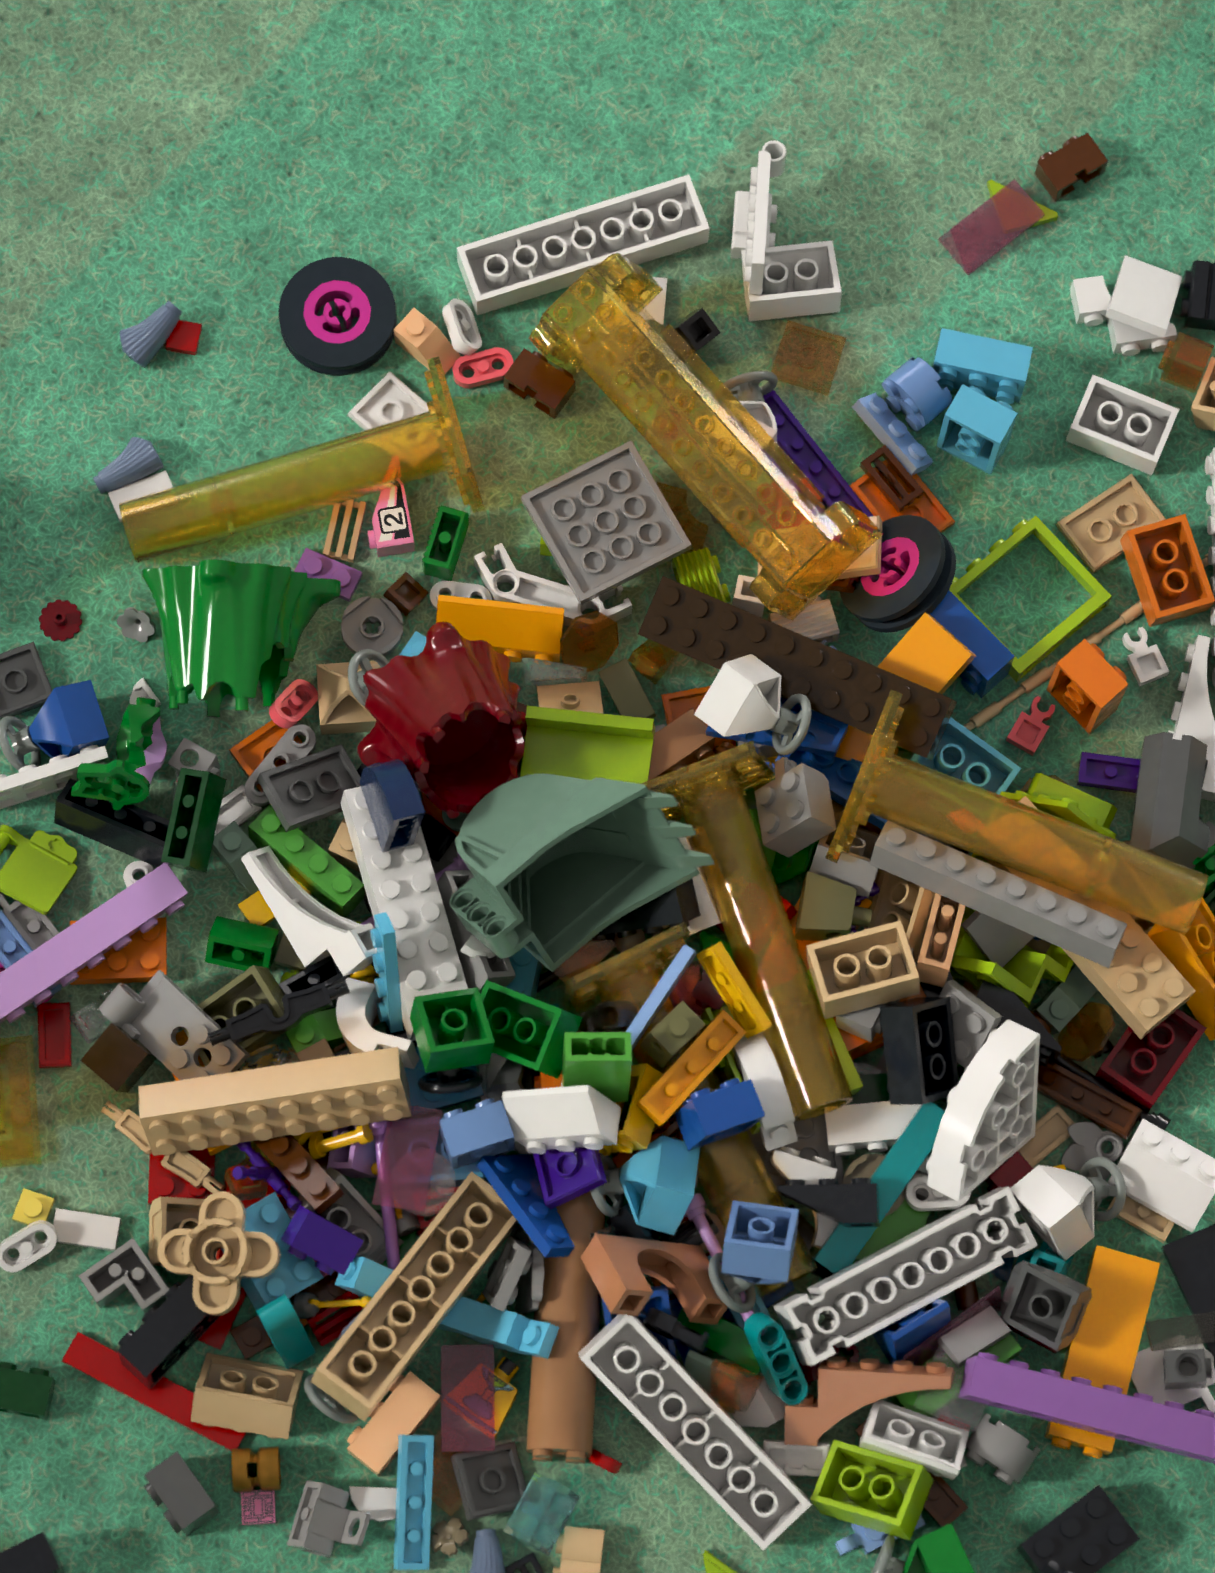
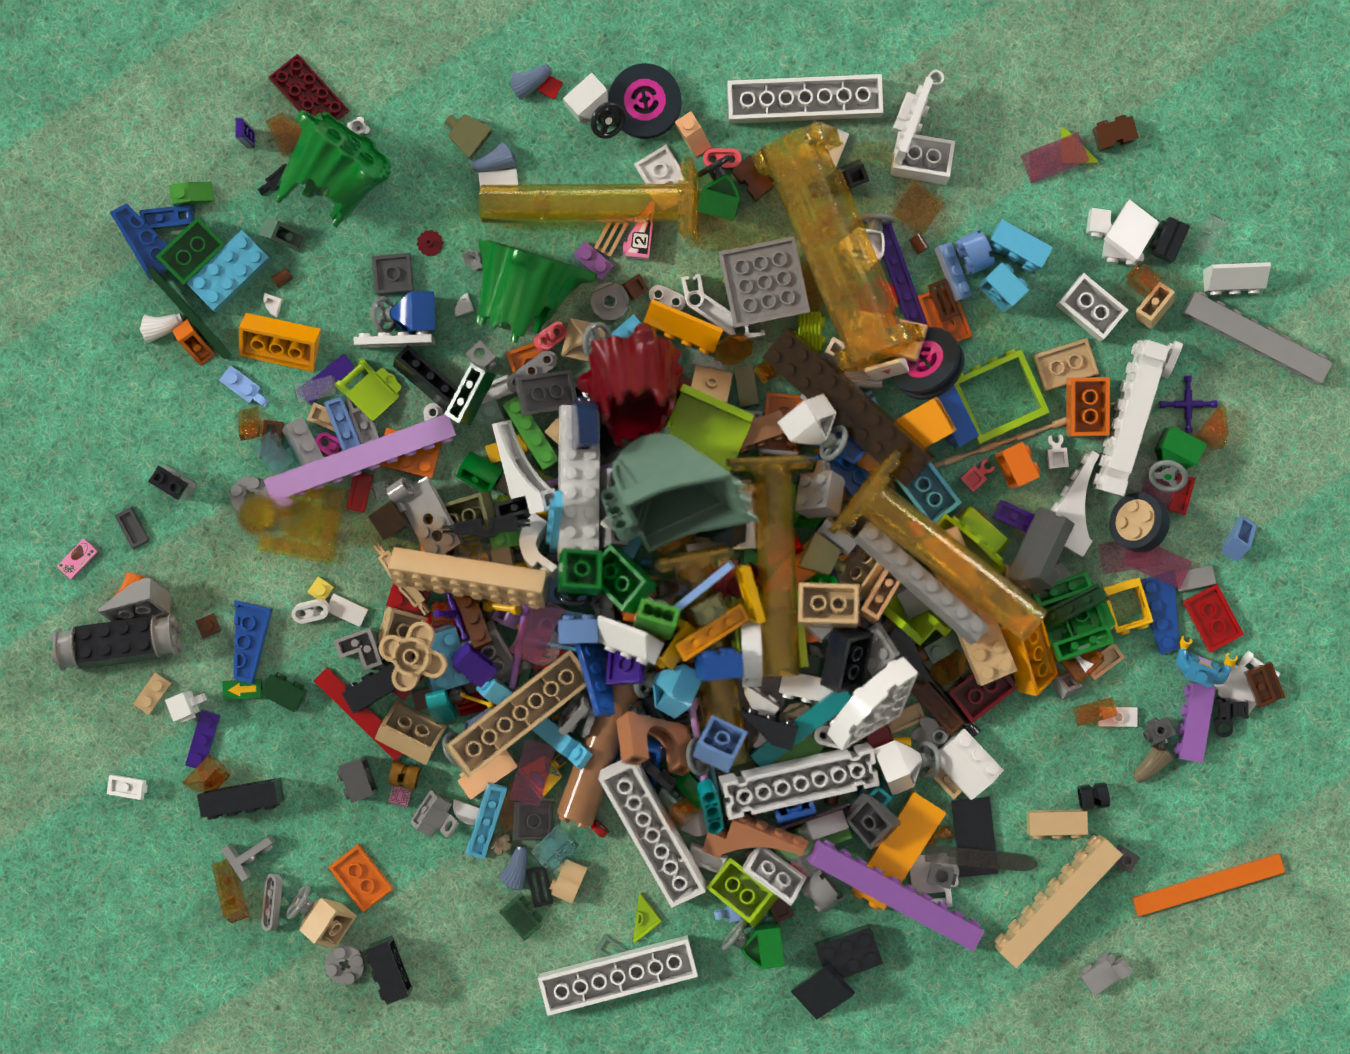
camera: 20 degrees right, 15 degrees up
(75, 439) = (468, 134): none -> olive torso
(138, 753) = (451, 345): green hips -> none
(254, 342) = (590, 105): none -> white piece
(445, 543) = (667, 263): green brick -> none
(461, 327) = (717, 130): white plate -> none
(498, 417) = (721, 195): none -> green piece
(826, 408) = (919, 243): none -> reddish brown hinge
(839, 597) = (887, 369): none -> white slope
(1162, 1302) = (941, 832): none -> clear orange arm

